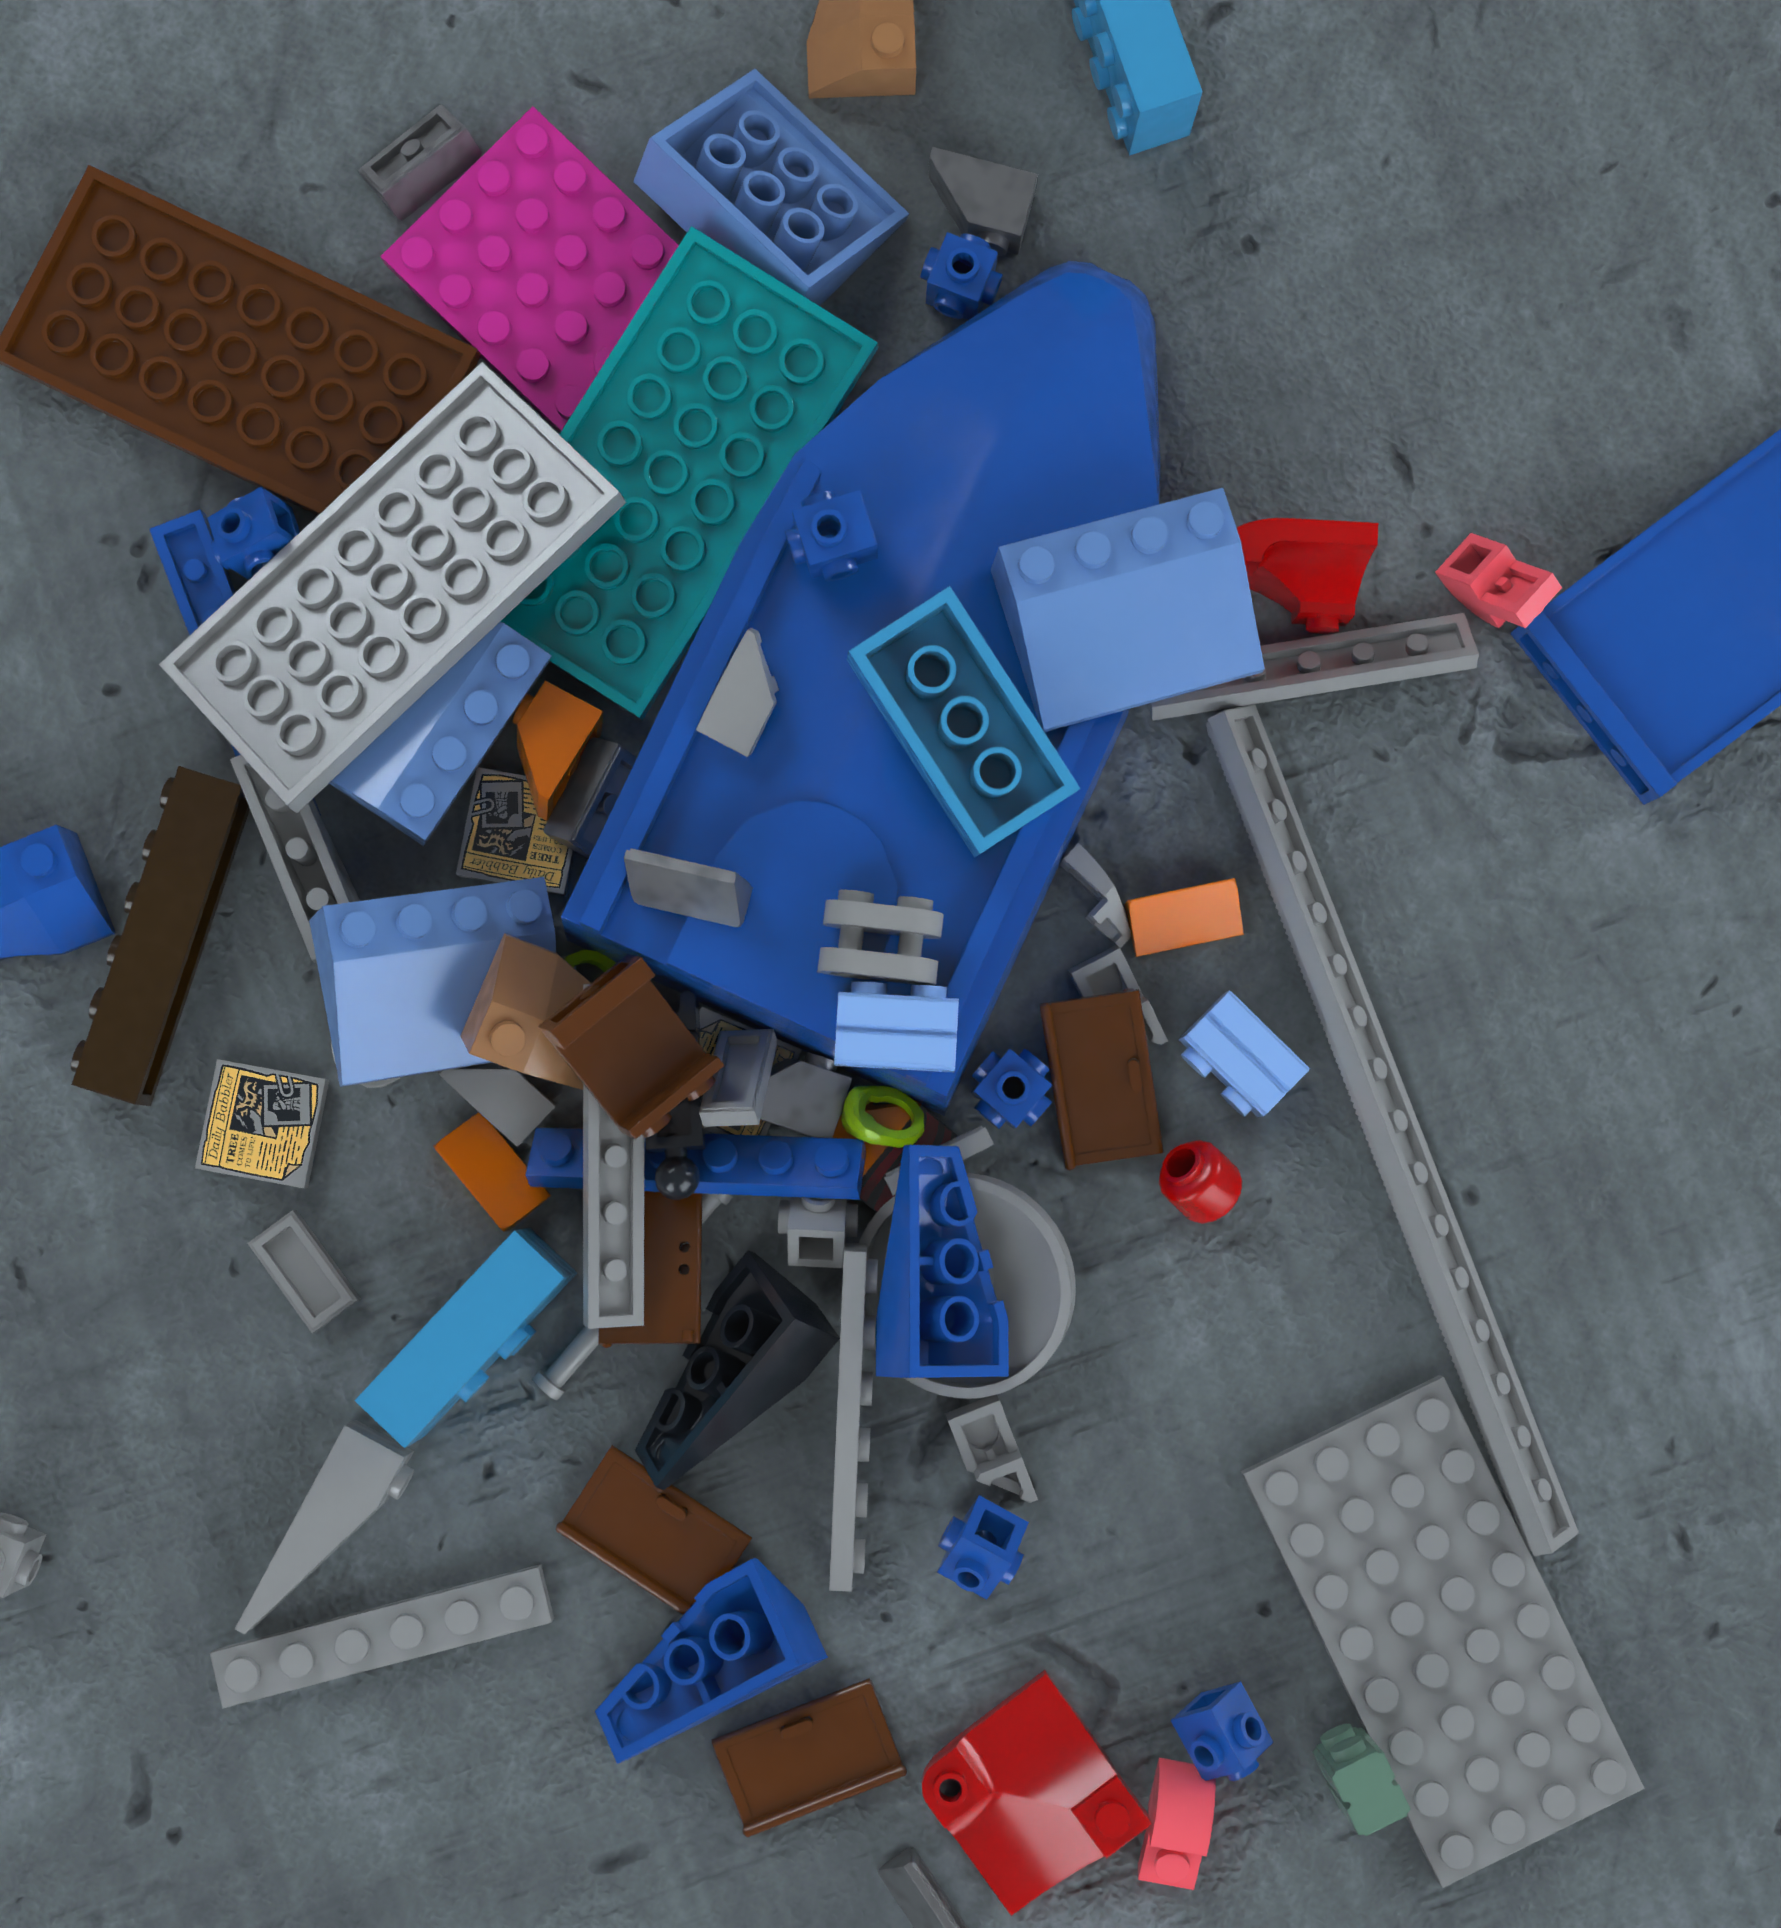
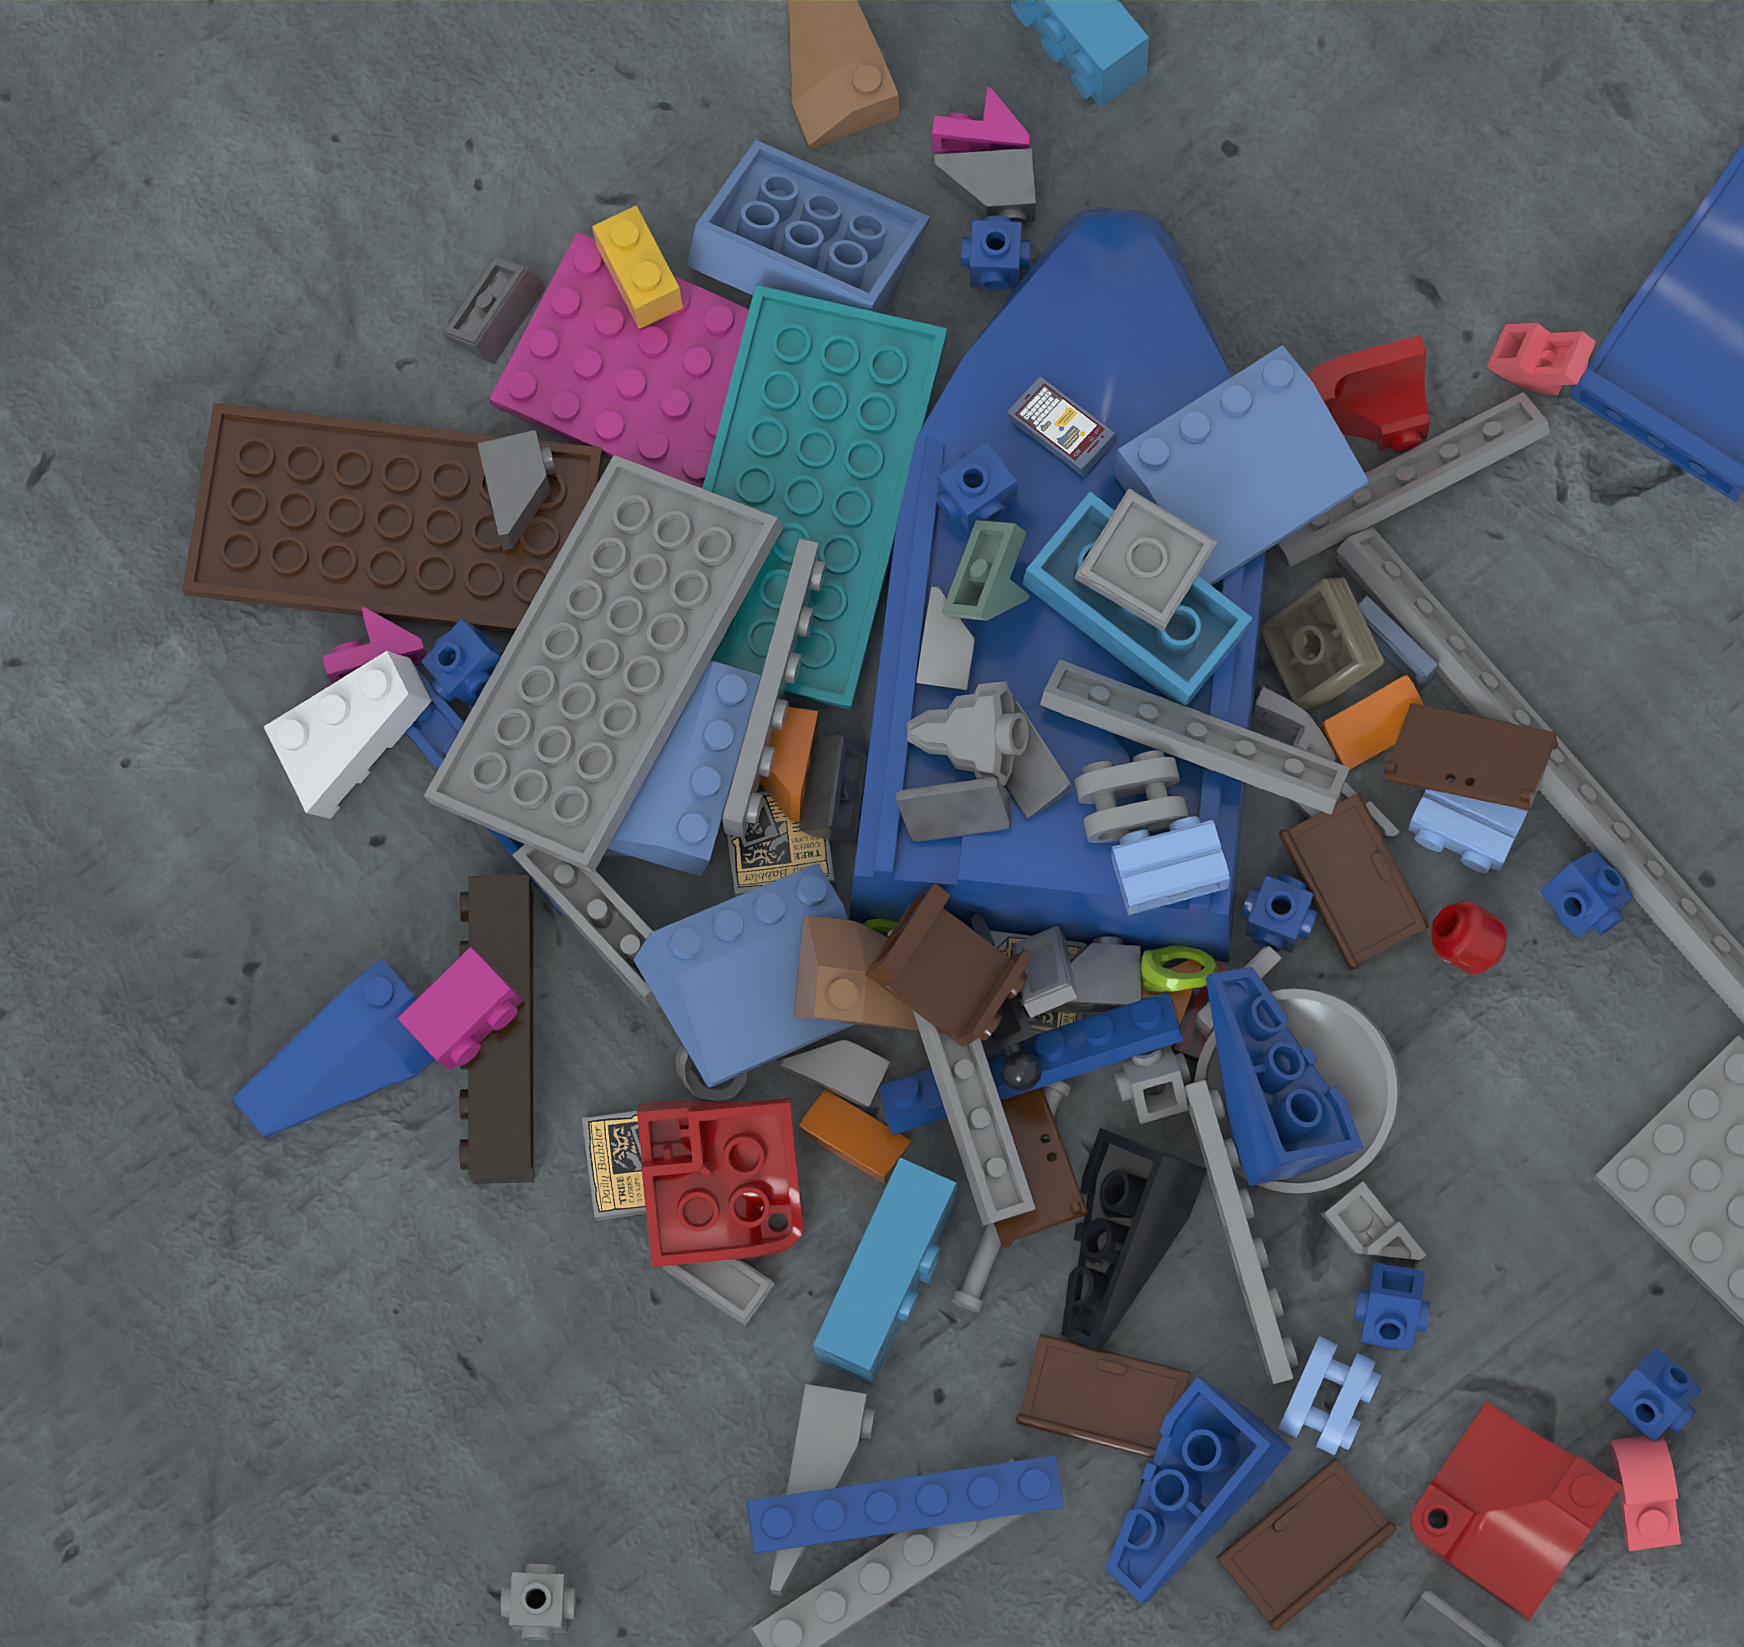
camera: 10 degrees left, 10 degrees down
(102, 564) = (345, 729): none -> white wedge
(115, 910) = (461, 1010): none -> dark pink brick
(176, 493) = (383, 637): none -> dark pink slope
(326, 1177) = (718, 1178): none -> red slope
(368, 357) = (516, 481): none -> flat silver slope
(401, 1588) = (904, 1504): none -> blue plate
(544, 694) = (769, 709): none -> light grey plate
(575, 164) = (637, 267): none -> yellow brick
(737, 811) = (975, 732): none -> light grey rock
(778, 858) = (1036, 776): none -> flat silver slope
(801, 644) = (983, 576): none -> sand green slope
(918, 1611) = (1357, 1384): none -> light blue brick
(952, 496) = (1061, 426): none -> tile
(973, 895) = (1194, 736): none -> light grey plate
(984, 685) = (1146, 559): none -> light grey tile
(1007, 144) = (996, 132): none -> dark pink slope
(1155, 816) = (1325, 618): none -> dark tan brick
(1232, 838) = (1397, 646): none -> sand blue tile
(1295, 1001) = (1495, 755): none -> reddish brown door
(1340, 1179) = (1588, 895): none -> blue brick

